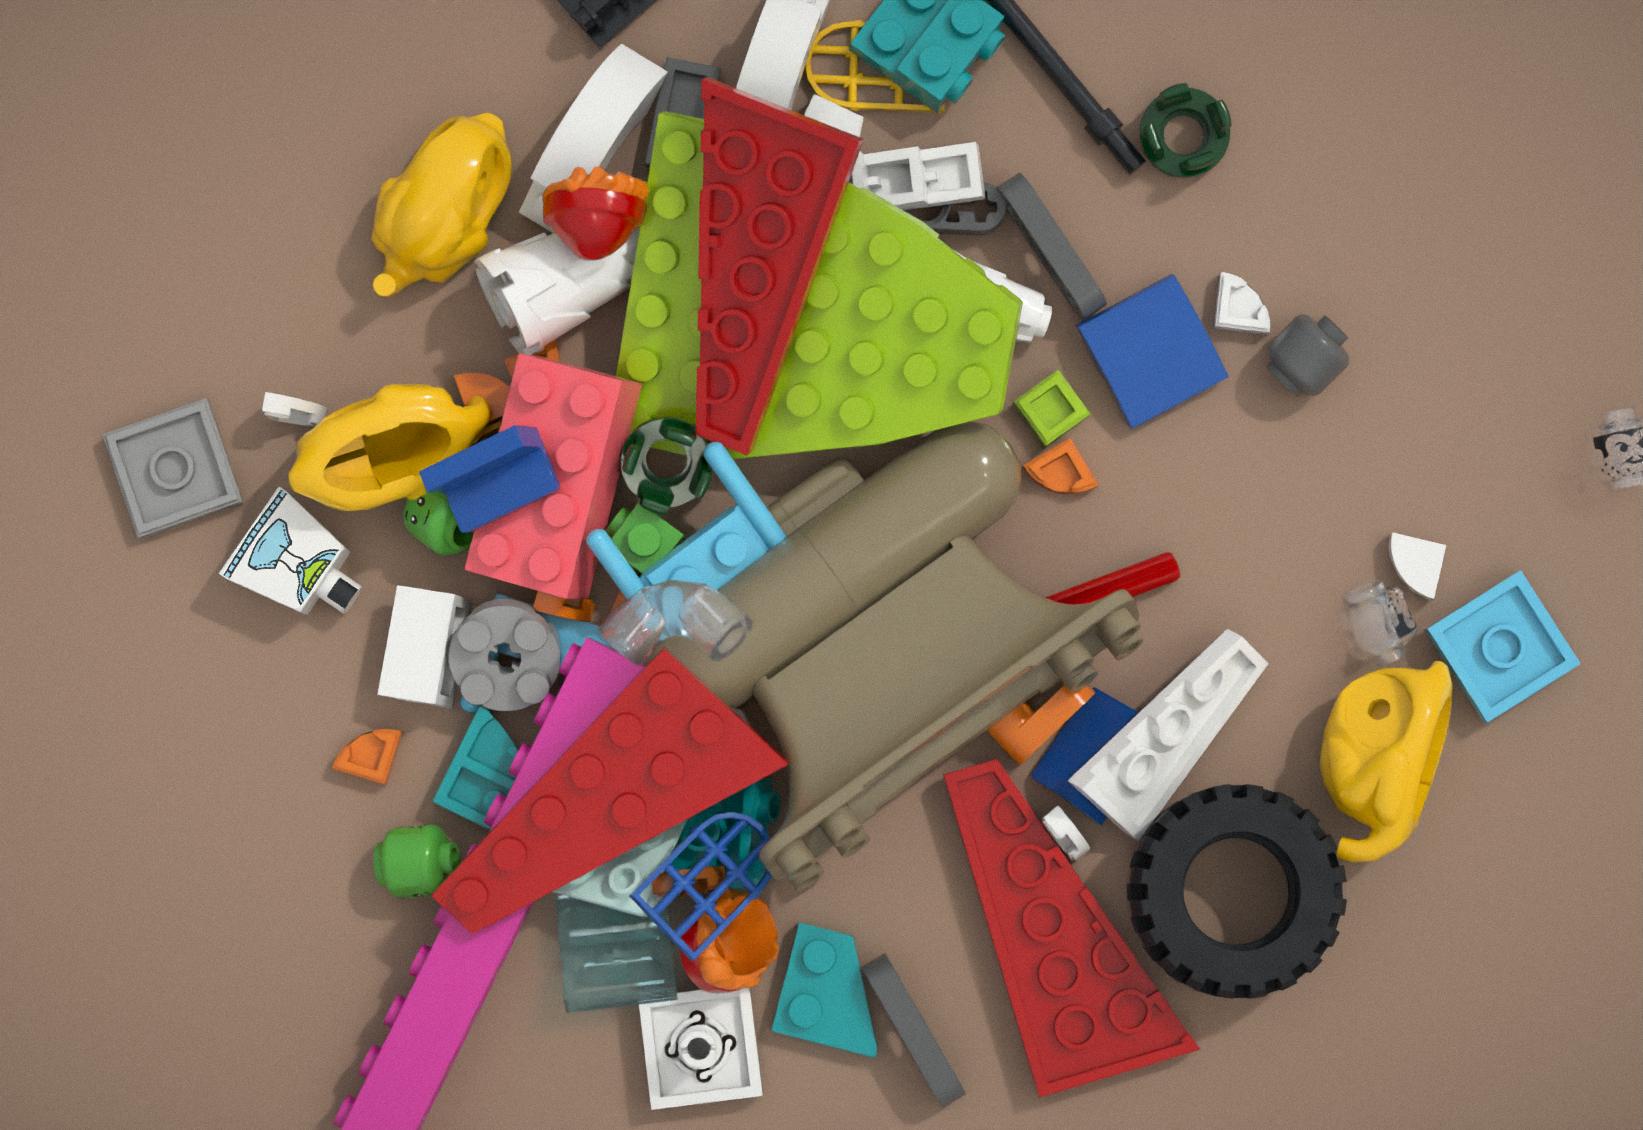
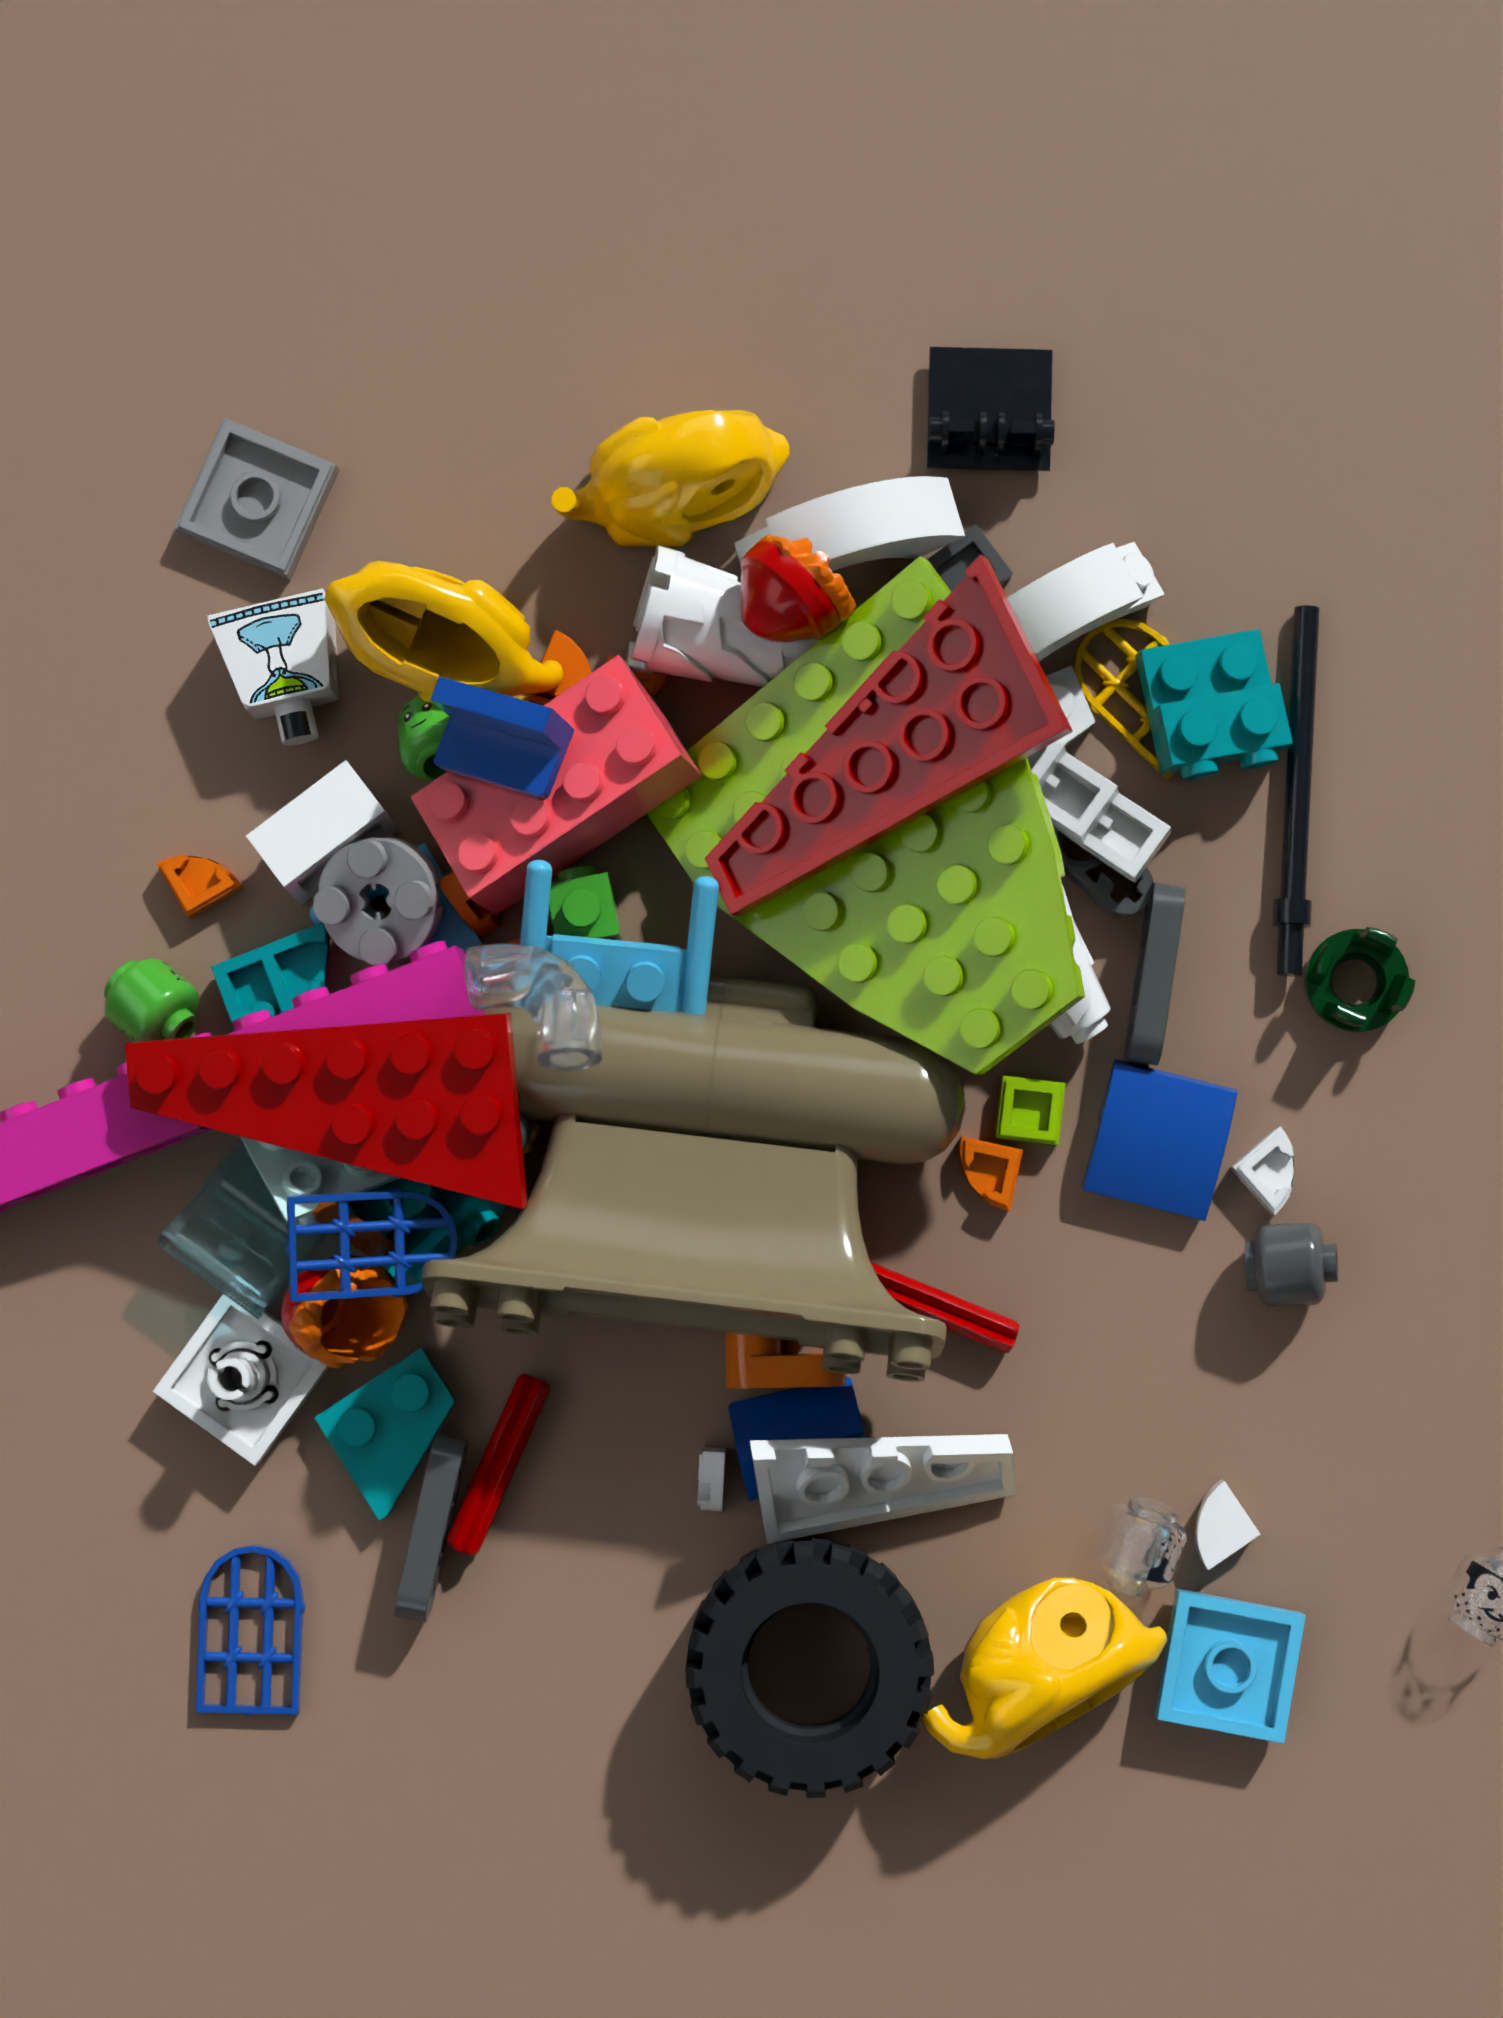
camera: 45 degrees right, 0 degrees up
(292, 410) = (395, 536): white tile -> none
(658, 492) = (629, 875): dark green piece -> none
(918, 951) = (498, 1464): none -> red axle
(1066, 969) = (607, 1598): red wing -> none

